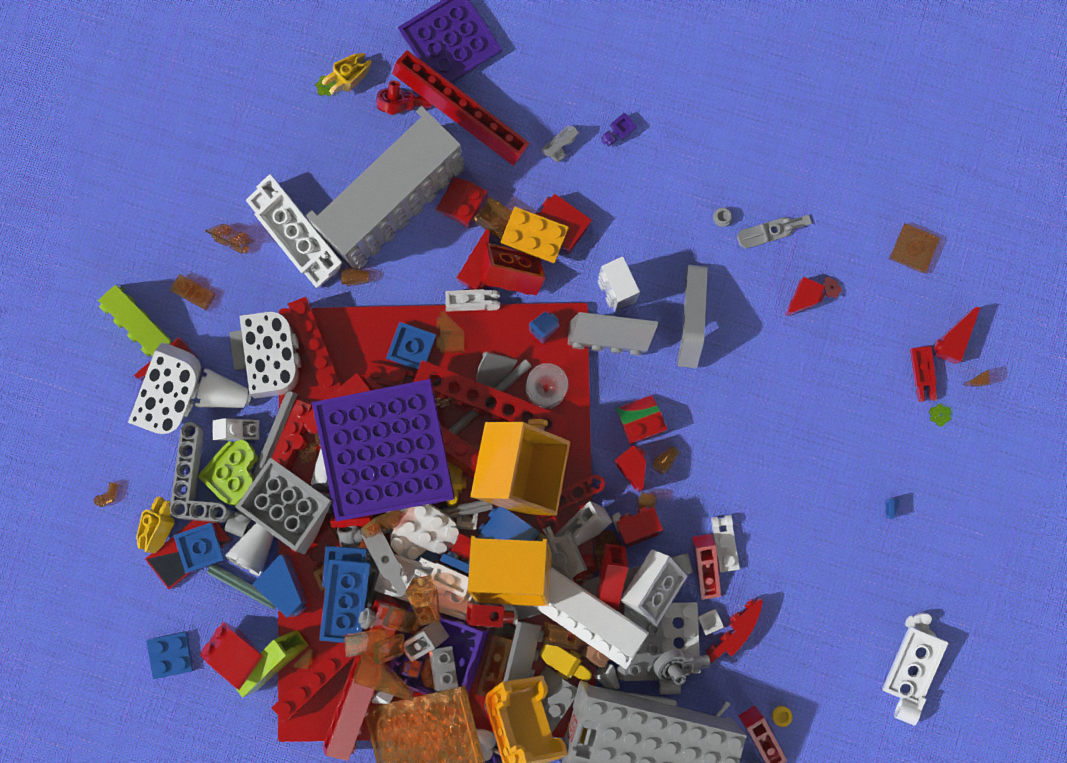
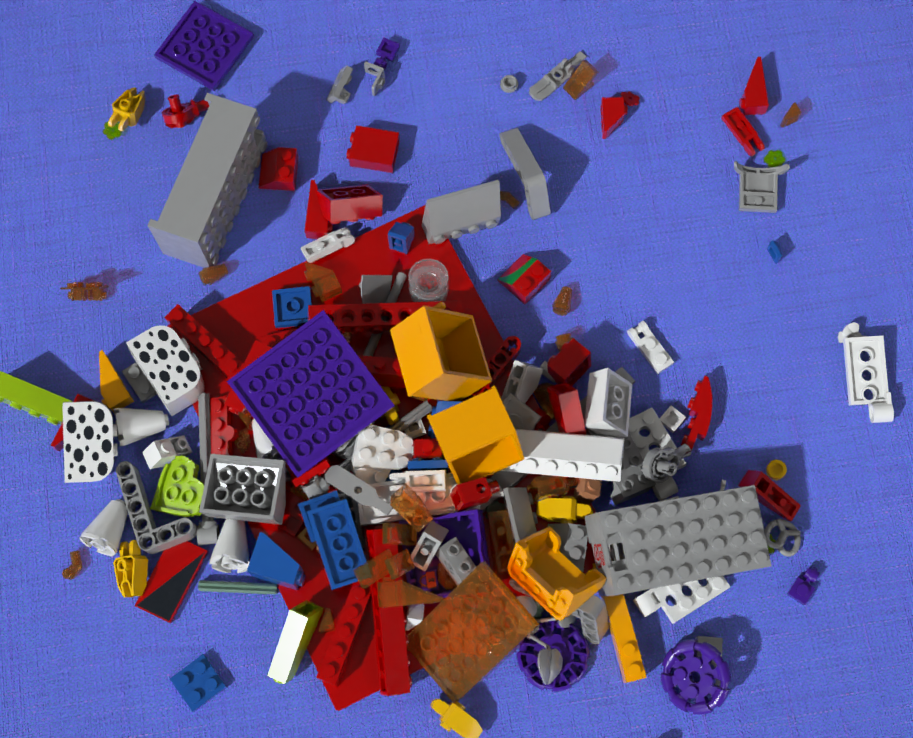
camera: 25 degrees left, 10 degrees down
(151, 476) = (107, 528): none -> white cone
(192, 292) = (72, 353): clear orange slope -> none
(199, 547) = (181, 569): blue plate -> none
(214, 343) = (111, 385): none -> light orange slope
(231, 654) = (256, 648): red slope -> none
(293, 232) = (142, 258): white slope -> none
(367, 618) = (367, 547): light grey plate -> none
(387, 520) = (340, 457): clear orange slope -> none
(460, 107) = (252, 93): red brick -> none
(493, 217) = (317, 168): clear orange bracket -> none
(534, 235) = (355, 165): light orange plate -> none
(598, 157) = (380, 79): none -> light grey bracket
(607, 677) = (605, 503): white slope -> none
(618, 284) = (447, 169): white brick -> none
(632, 466) = (537, 317): red slope -> none
(665, 333) = (509, 198): none -> clear orange arm
(706, 566) = (644, 372): slope -> none
(793, 247) = (581, 80): none -> clear orange slope
(908, 437) = (758, 187): none -> light grey piece
(914, 248) = (682, 38): clear orange plate -> none

